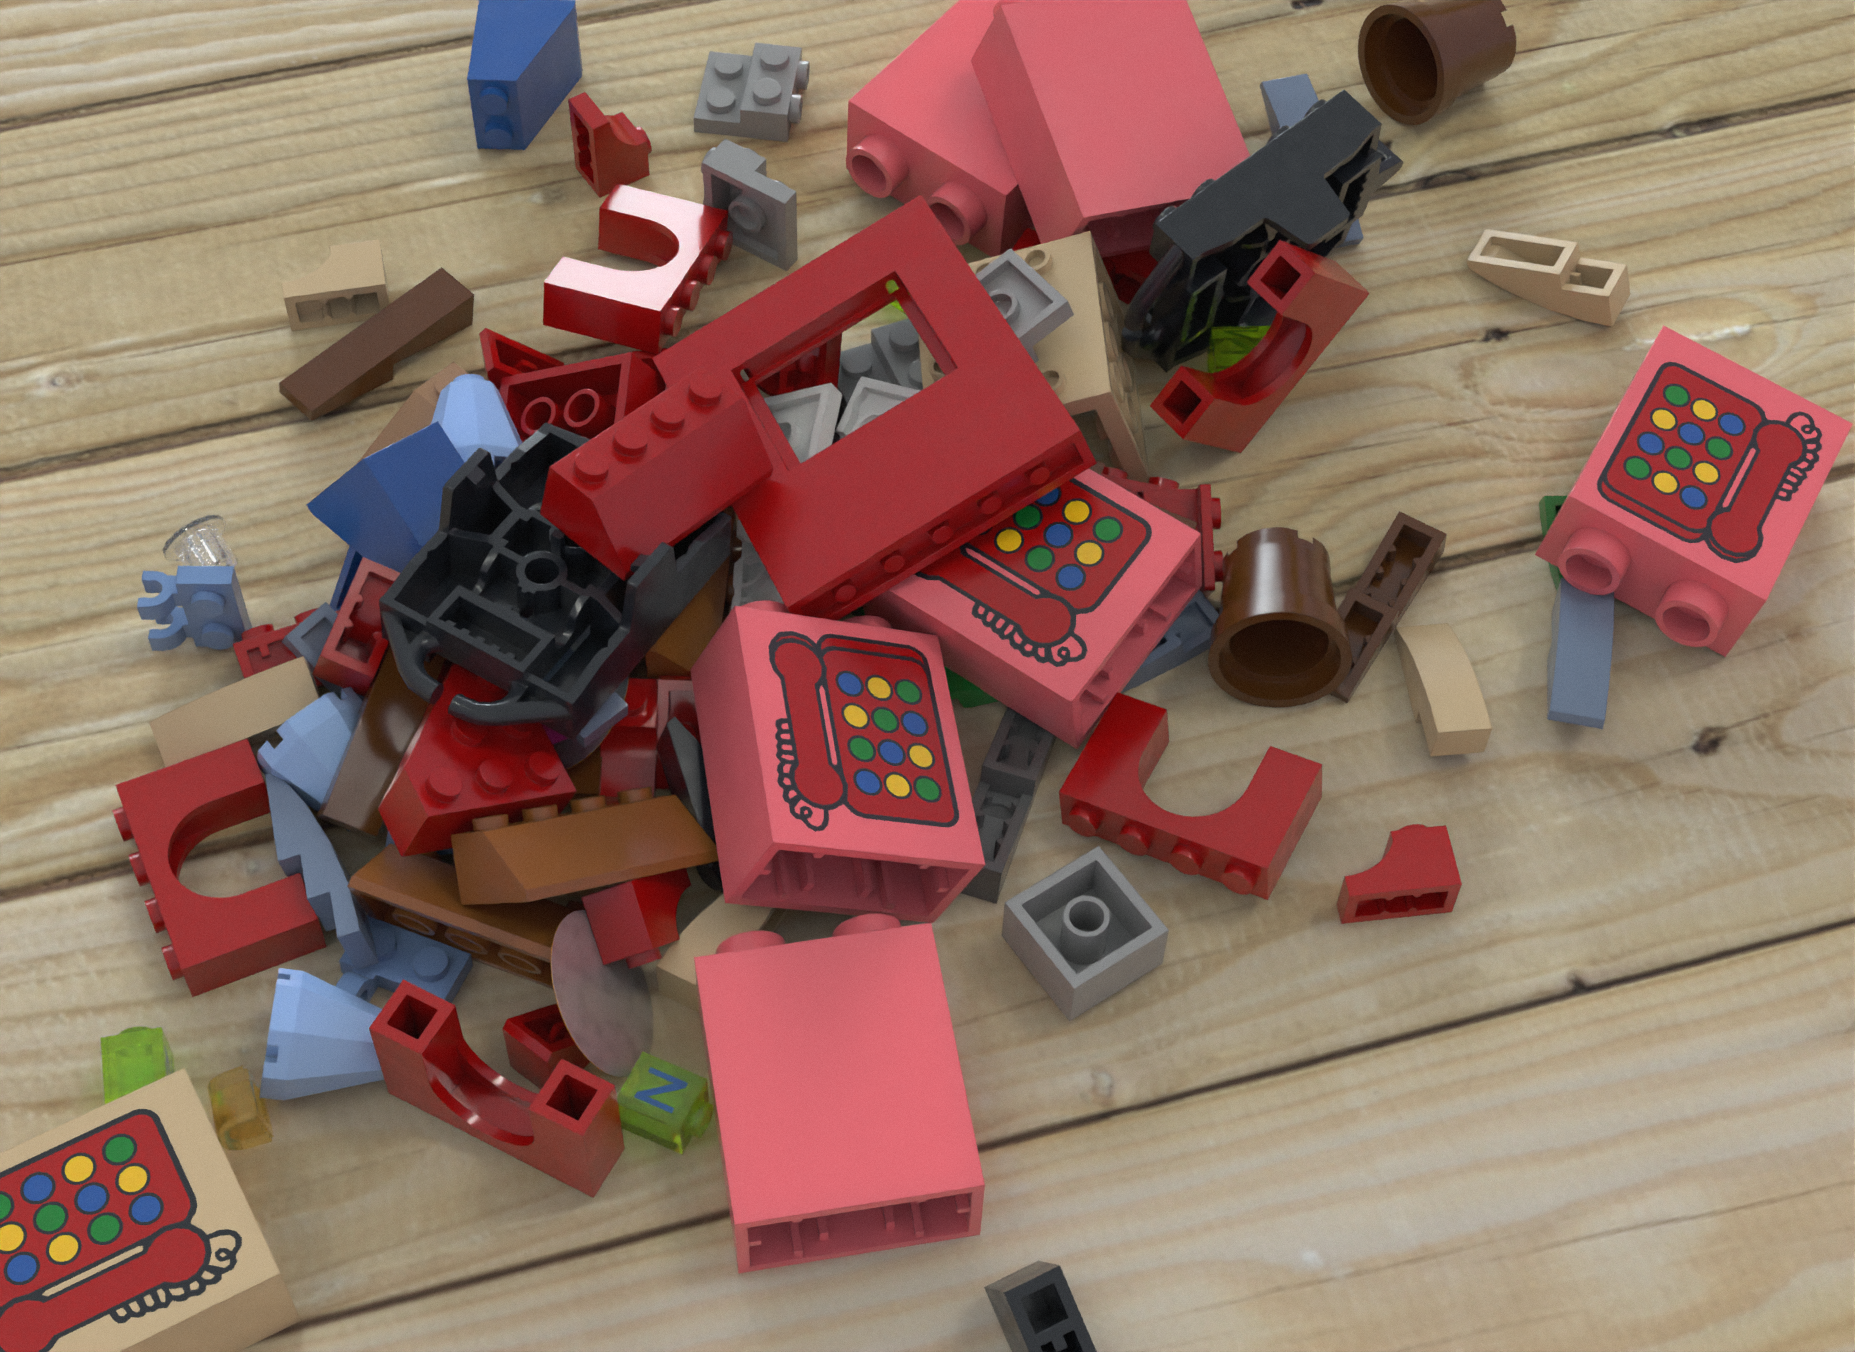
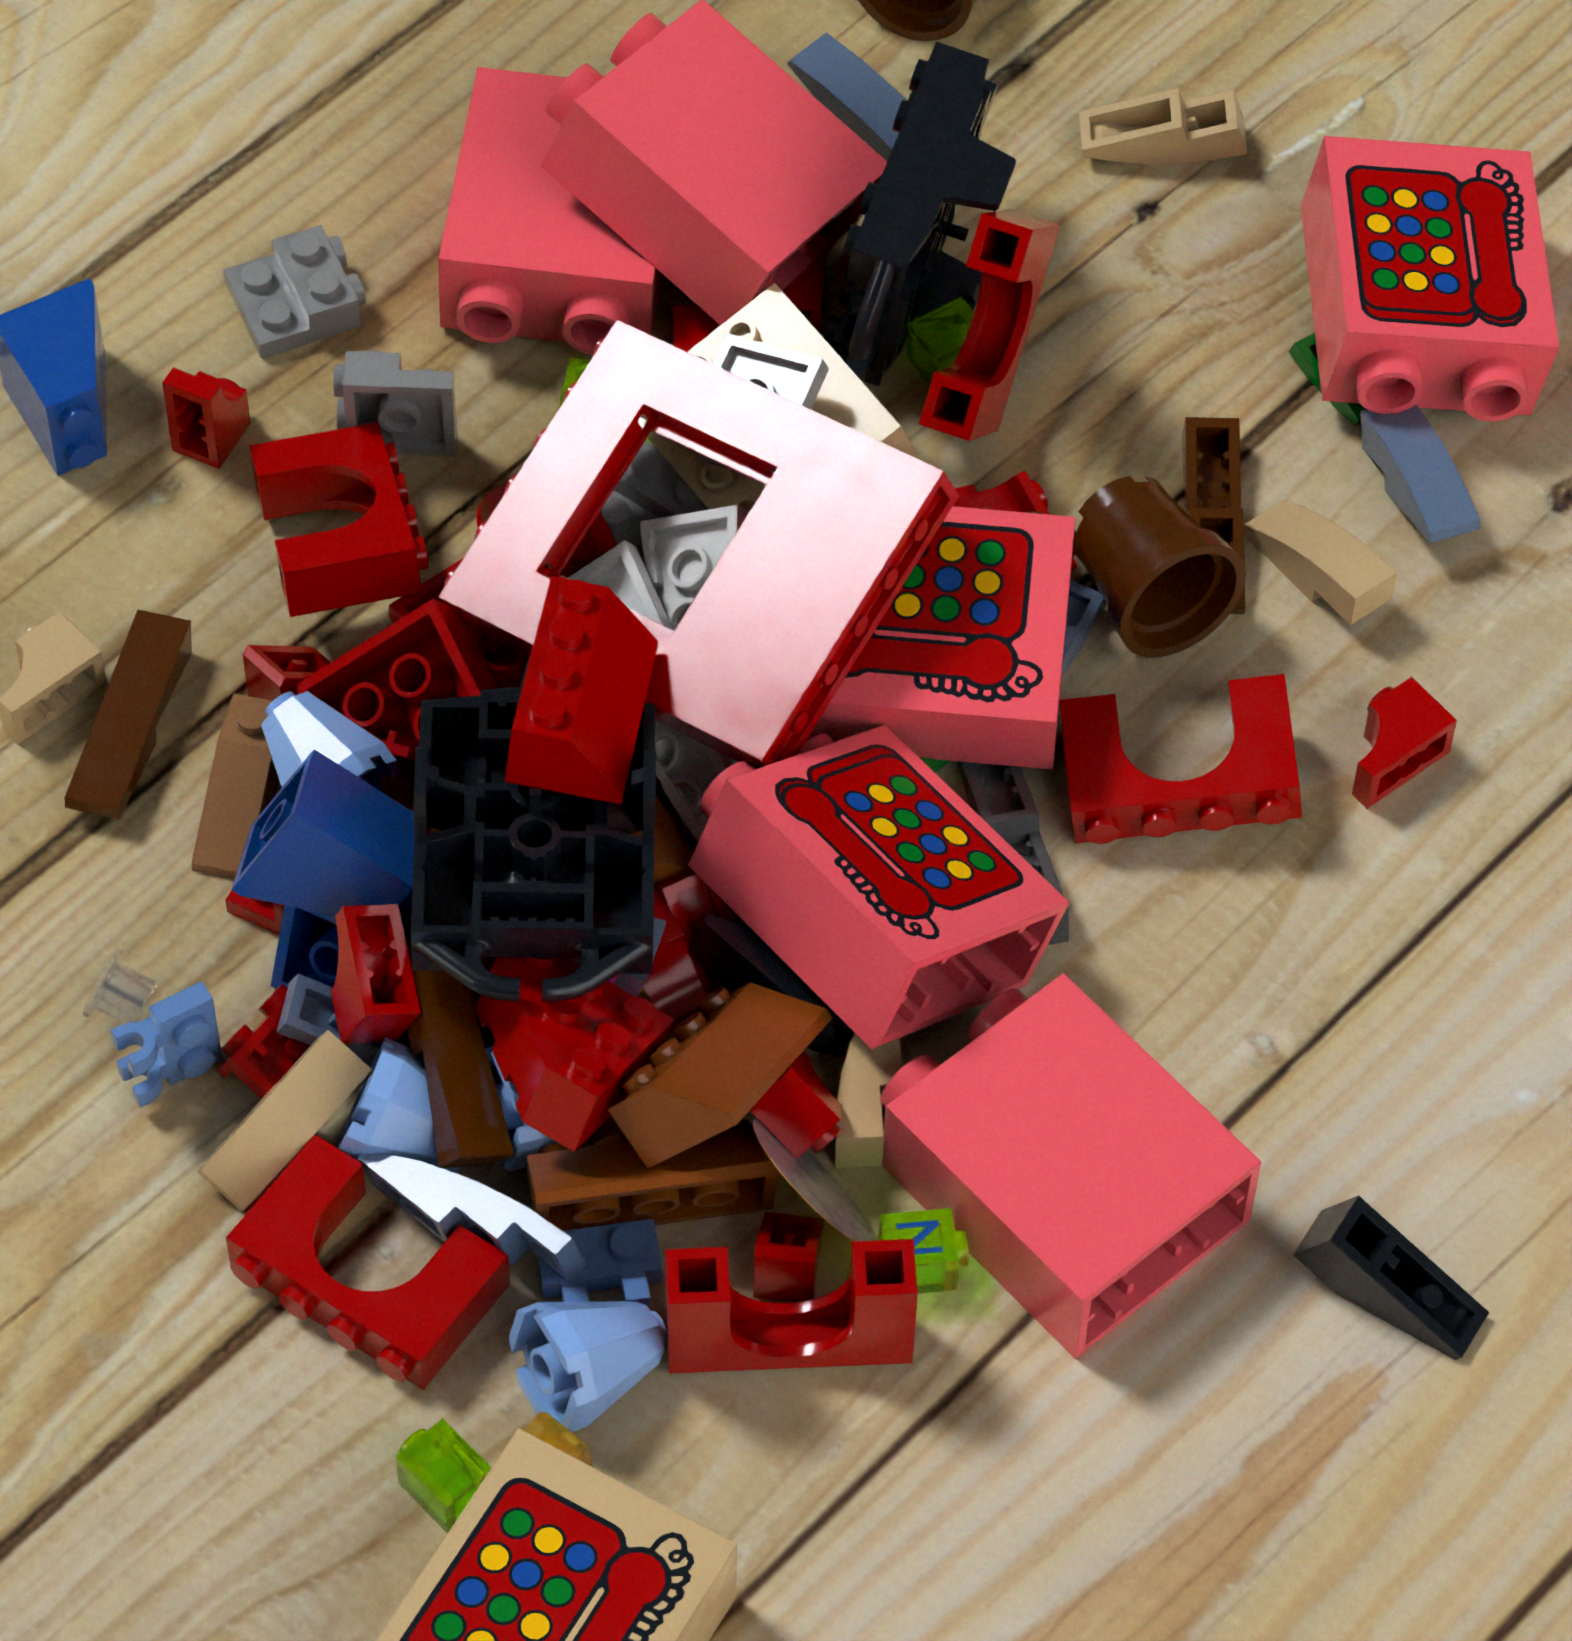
camera: 30 degrees left, 0 degrees up
(1084, 933) = (1173, 922): light grey brick -> none

